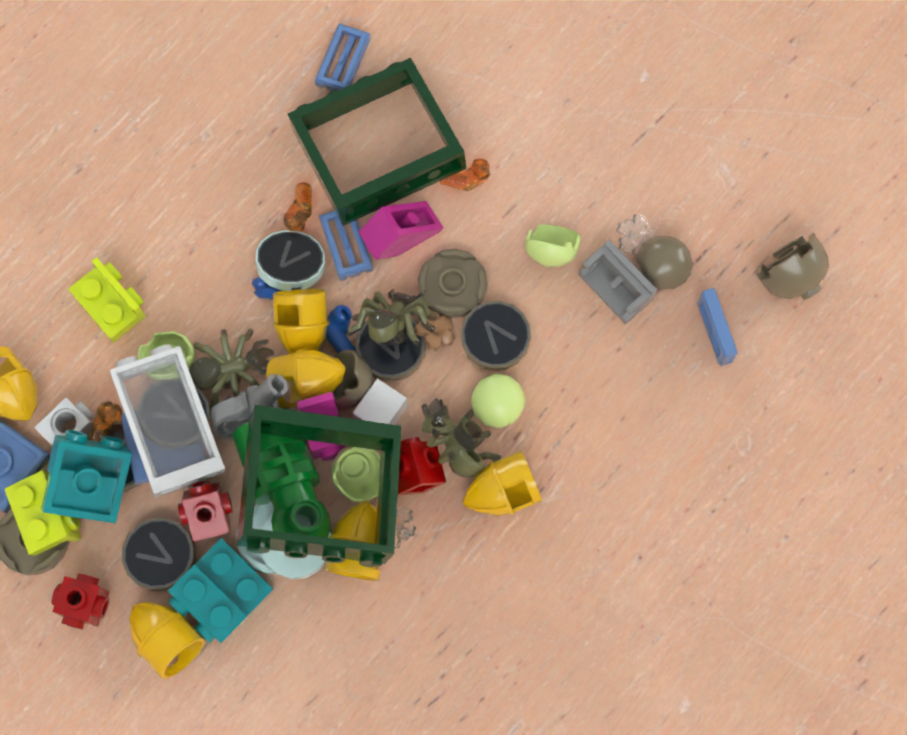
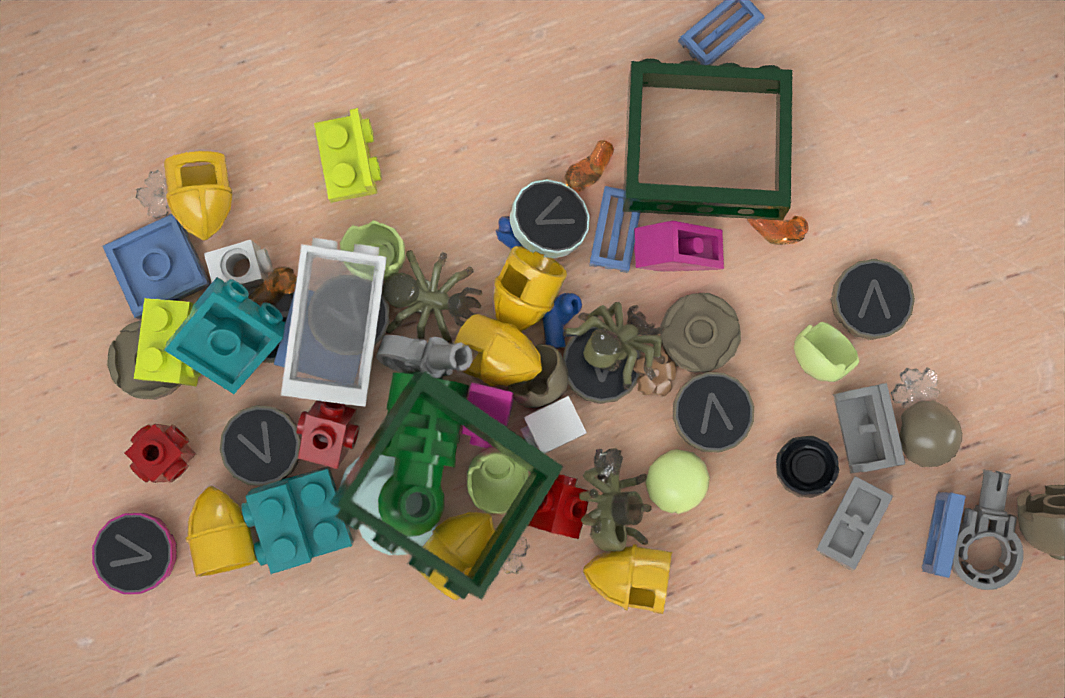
camera: 30 degrees right, 10 degrees up
(101, 695) = (134, 553): none -> black tile
(566, 189) = (872, 299): none -> black tile
(587, 334) = (807, 466): none -> black hair
(647, 355) = (854, 523): none -> light grey hinge
(758, 301) = (1001, 526): none -> light grey pin

